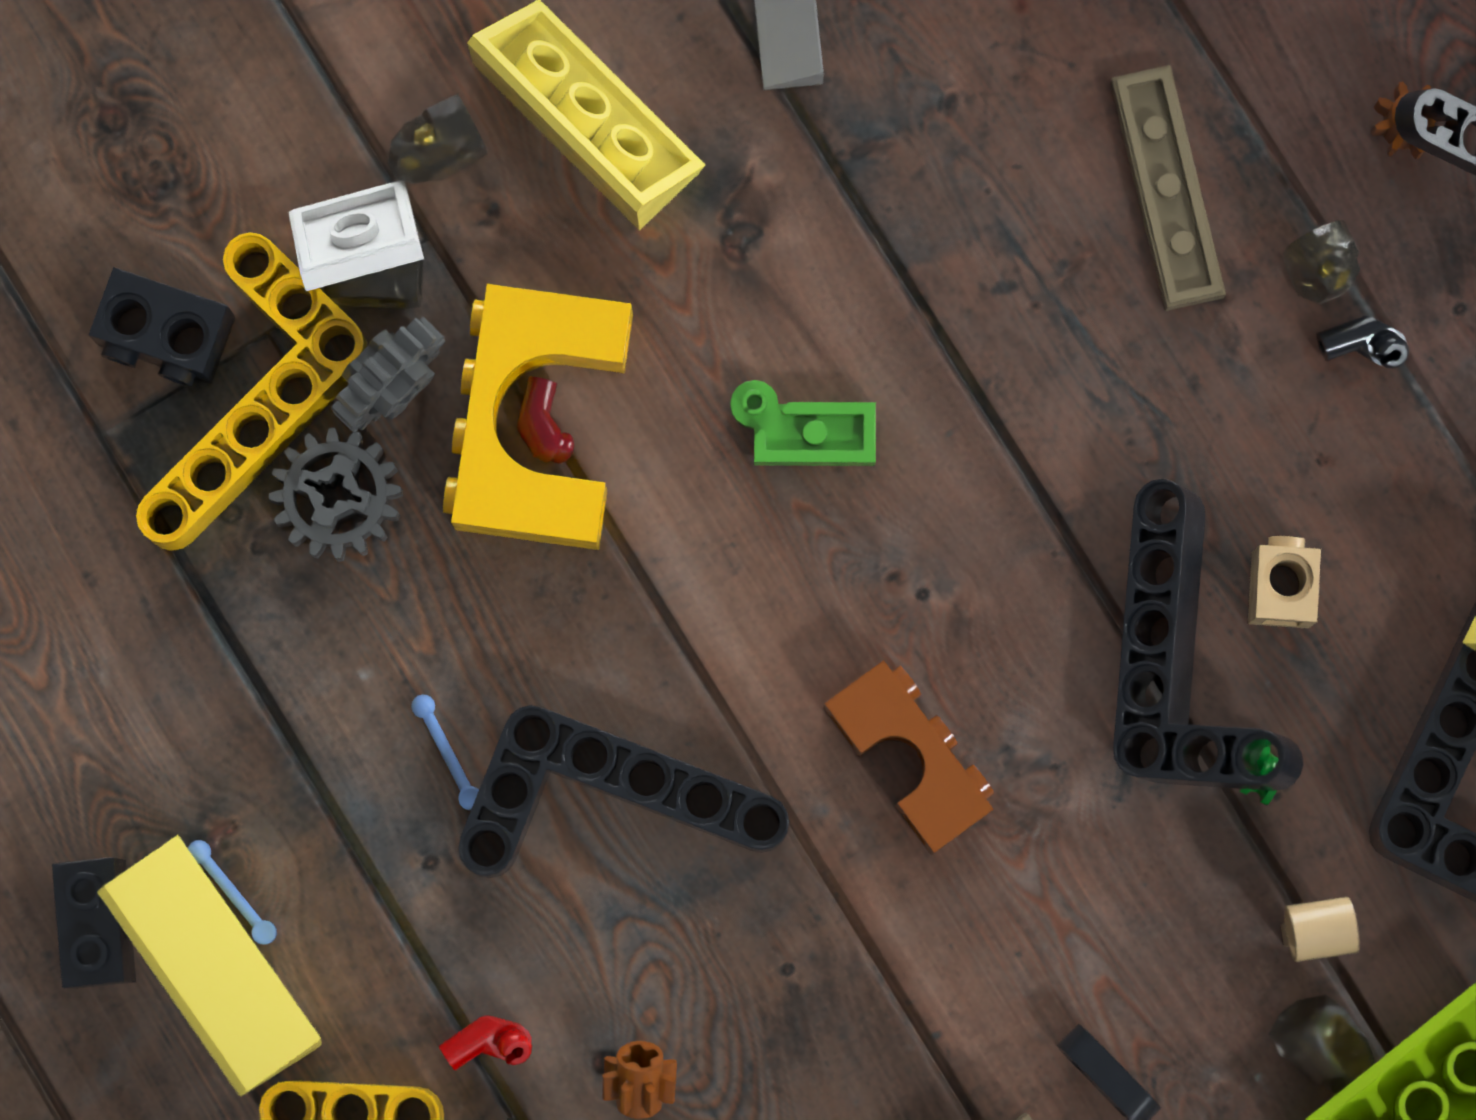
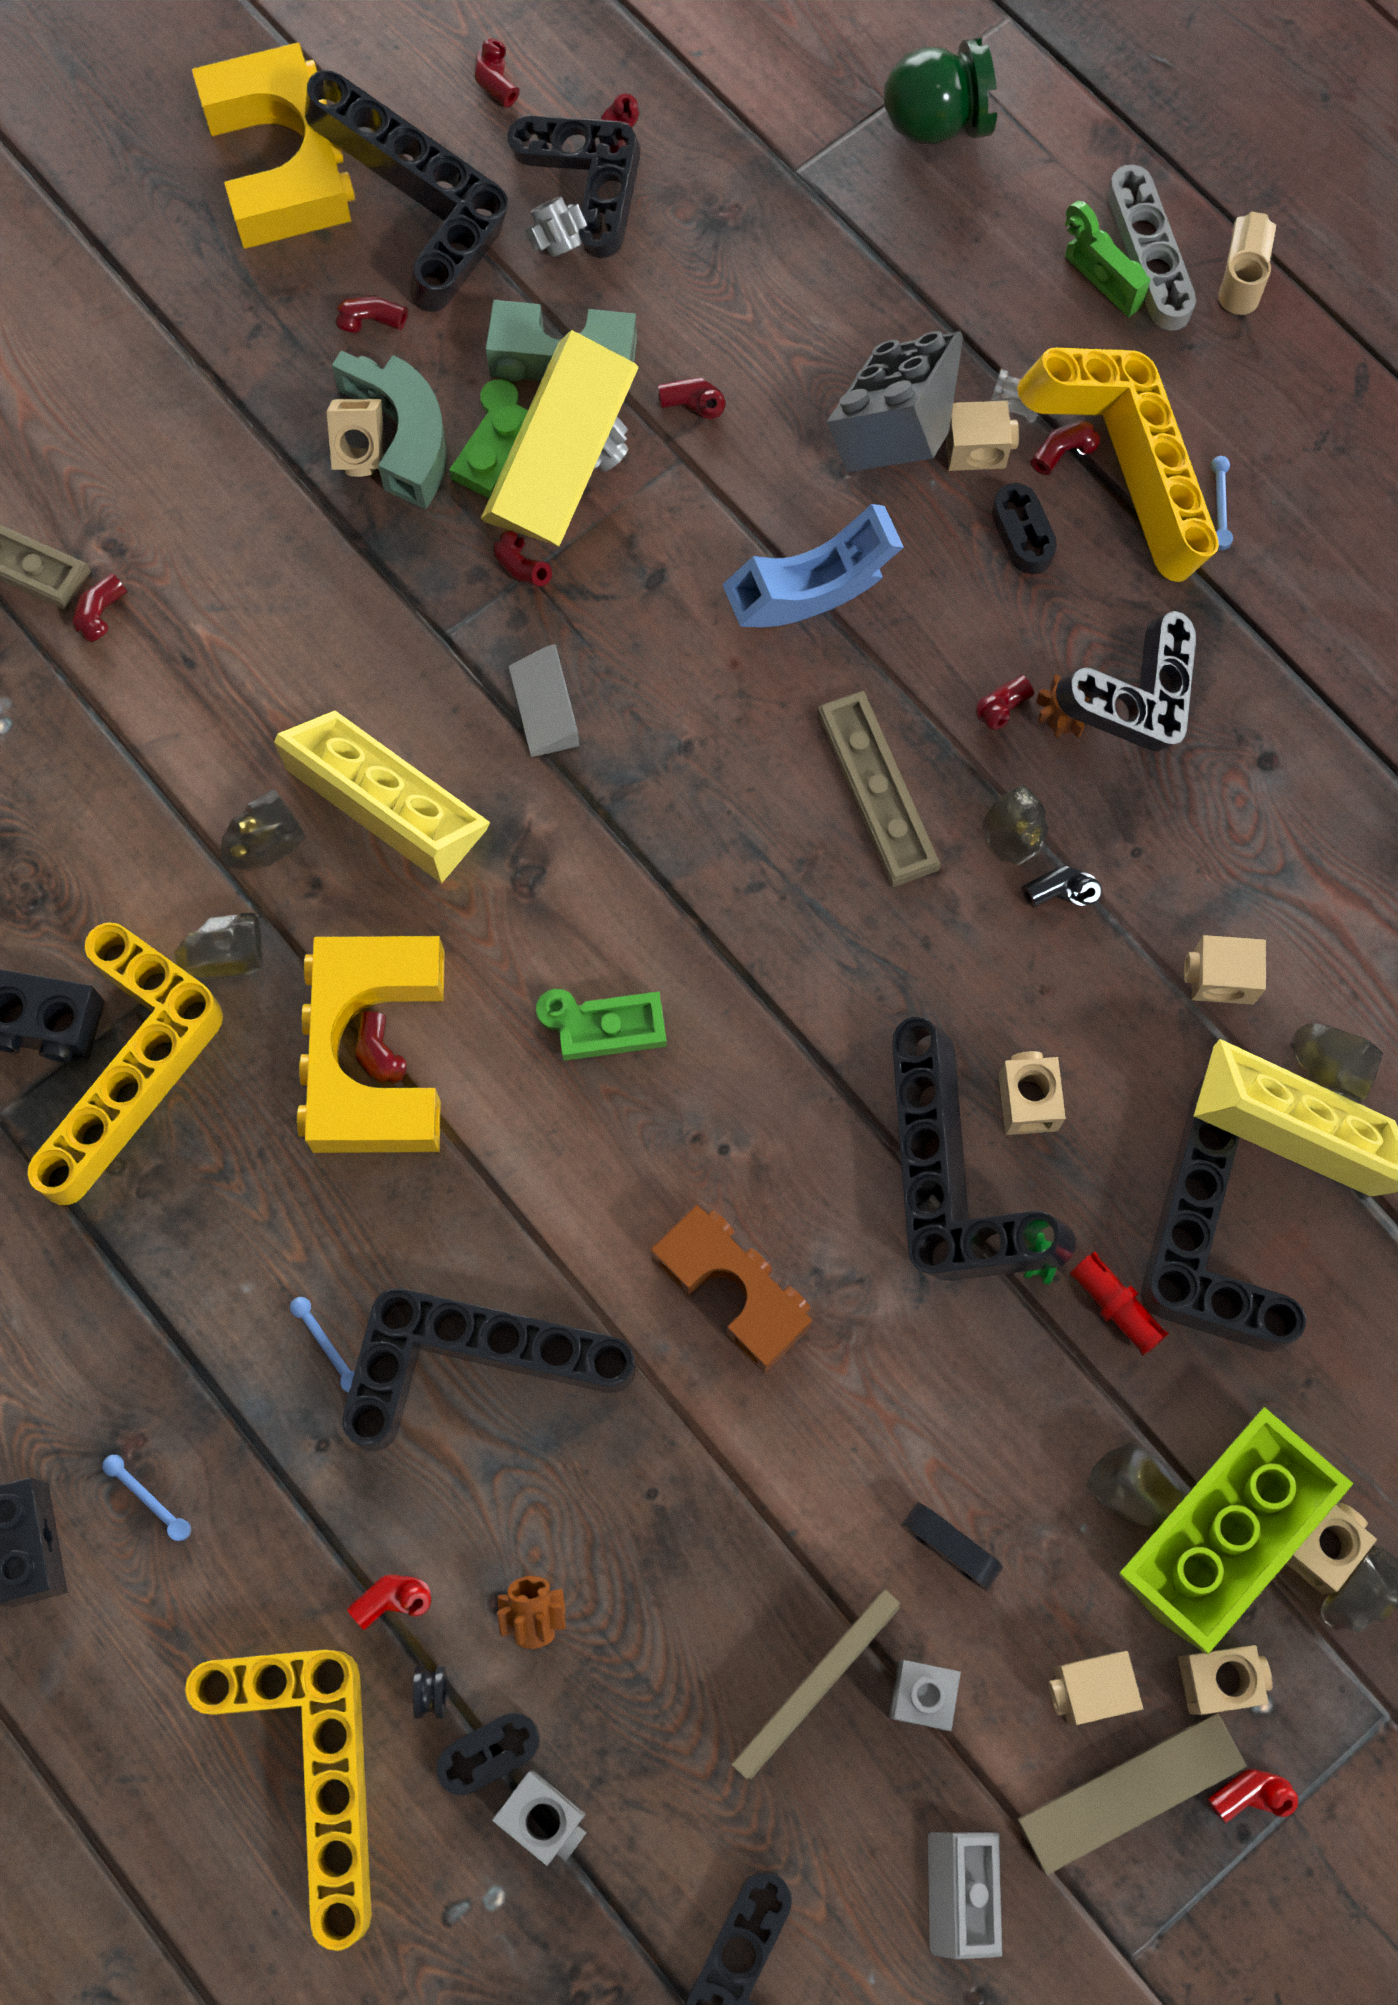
camera: 10 degrees left, 10 degrees down
(210, 966) = (127, 1565): light yellow slope -> none
(346, 469) = (200, 1156): dark grey gear -> none
(355, 235) = (197, 914): white tile -> none
(388, 374) = (236, 1023): dark grey gear -> none
(1320, 929) = (1116, 1382): tan piece -> none
(1321, 108) = (995, 706): none -> dark red arm
(1341, 837) = (1119, 1303): none -> red pin

